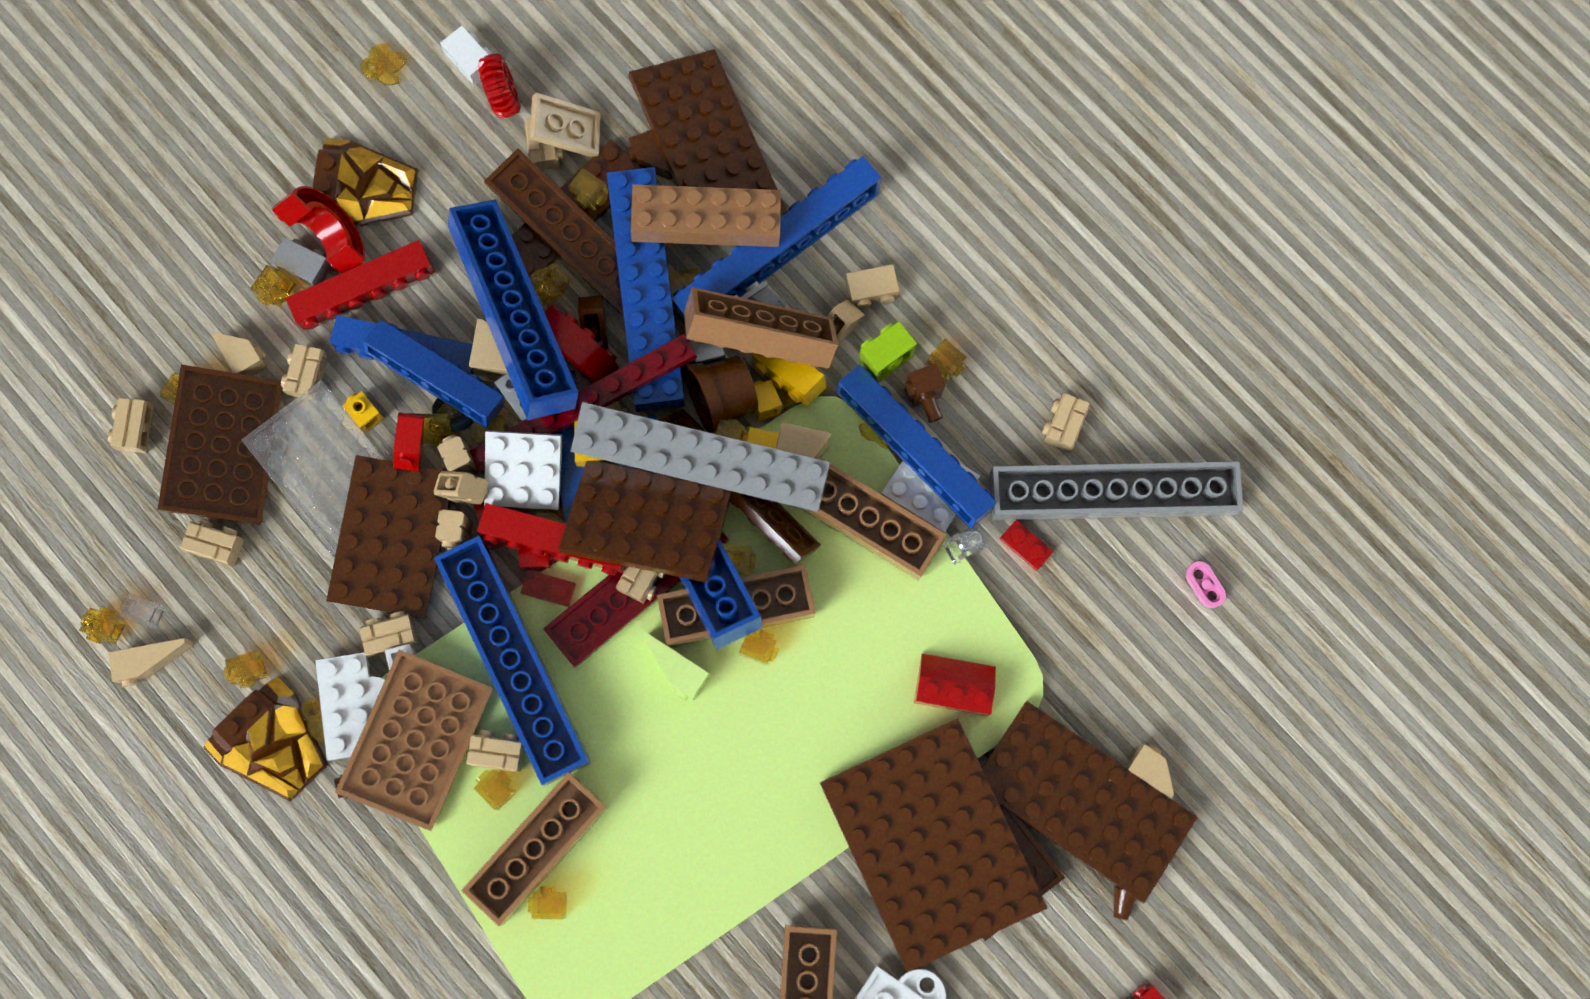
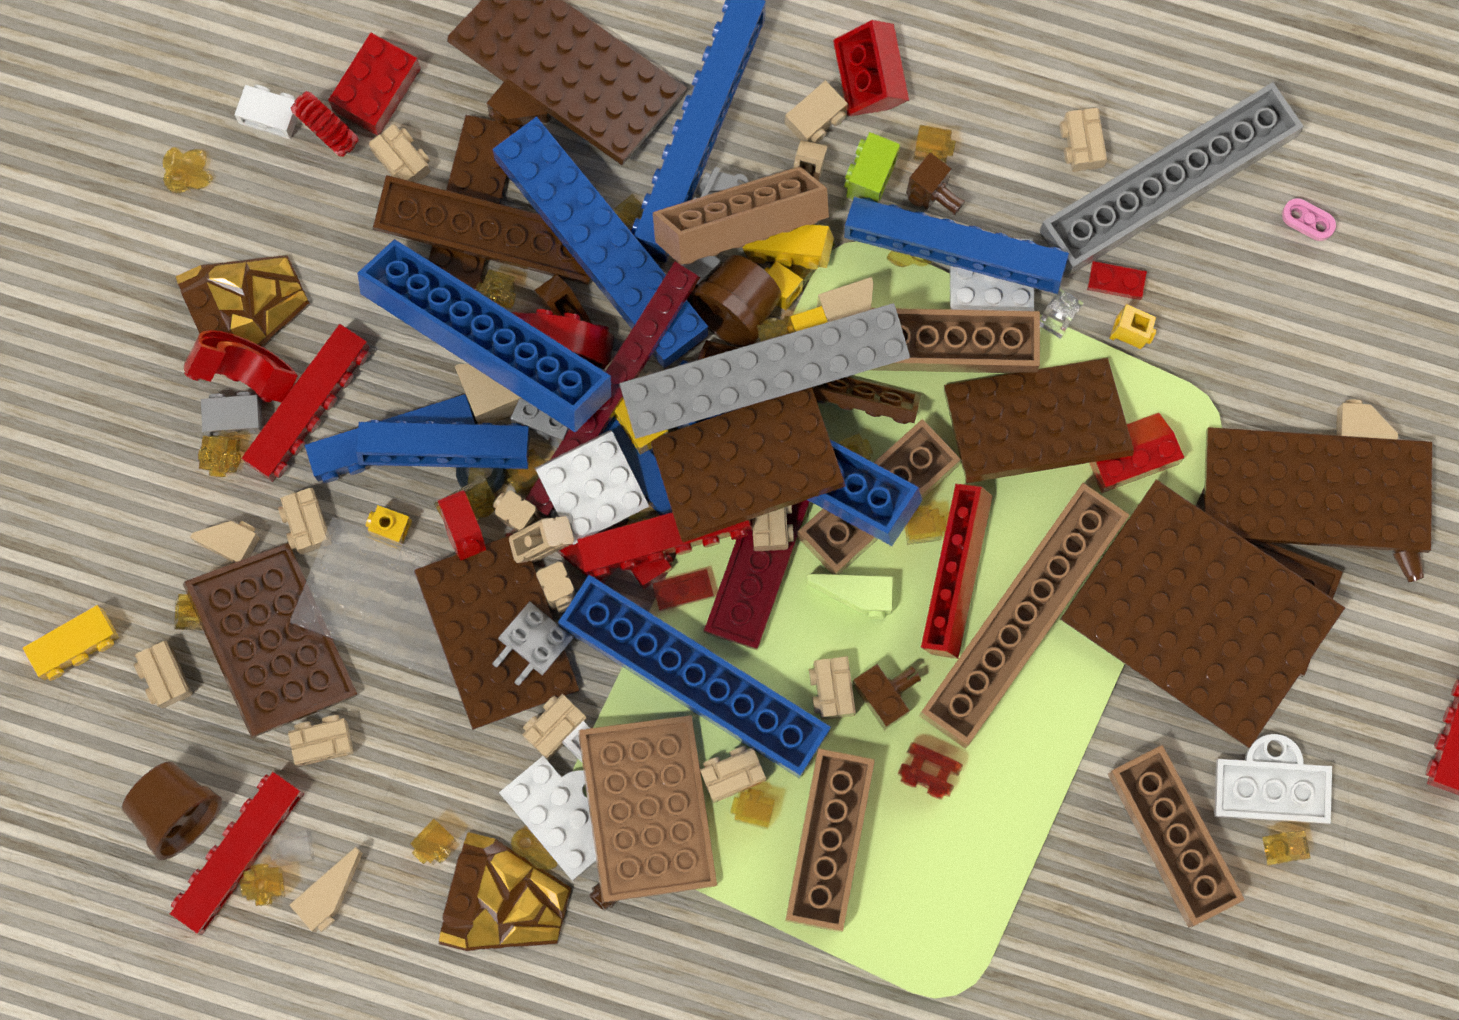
camera: 30 degrees left, 0 degrees up
(66, 529) = (170, 809): none -> reddish brown piece
(81, 363) = (71, 643): none -> yellow brick
(102, 588) = (236, 853): none -> red brick
(409, 560) = (535, 639): none -> light grey plate
(547, 904) = (872, 886): clear yellow brick -> none
(560, 74) = (374, 84): none -> red brick
(565, 125) = (415, 126): tan plate -> none
(588, 190) = (479, 177): clear yellow brick -> none
(612, 731) = (833, 688): none -> tan brick
(631, 836) = (913, 775): none -> clear red brick
(647, 760) = (884, 694): none -> reddish brown brick
(705, 215) = (621, 135): medium nougat brick -> none
(761, 697) = (956, 571): none -> red brick
(791, 763) = (1023, 615): none -> medium nougat brick
(895, 618) = (1037, 420): none -> reddish brown plate
(935, 275) = (871, 68): none -> red slope
(1016, 589) = (1133, 327): none -> yellow brick

